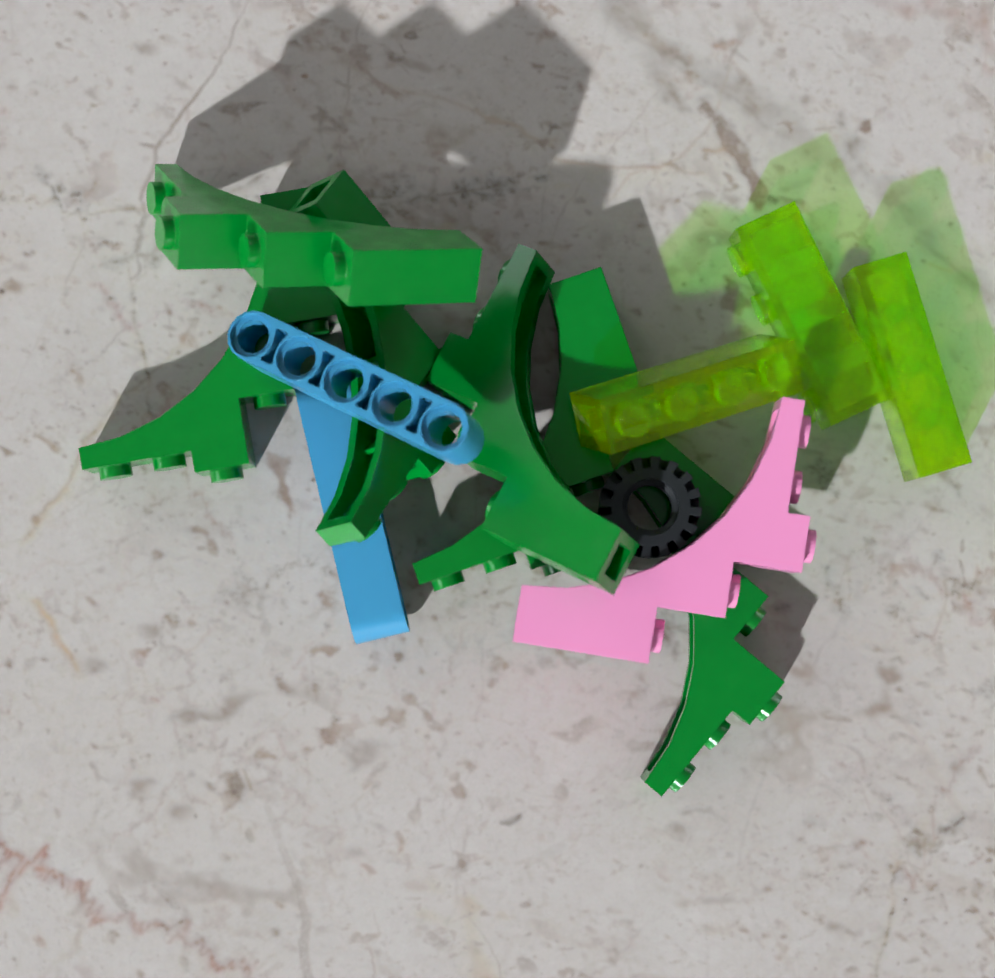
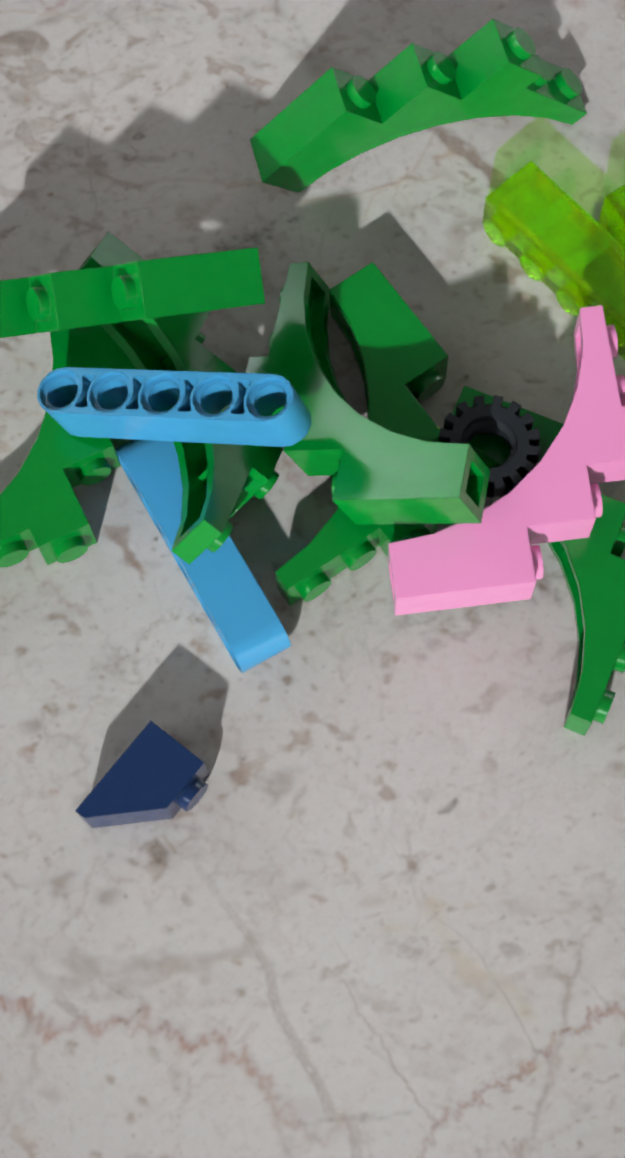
camera: 10 degrees left, 15 degrees down
(241, 725) = (146, 783): none -> dark blue slope
(686, 393) = (485, 341): clear neon green brick -> none
(696, 99) = (417, 90): none -> green arch

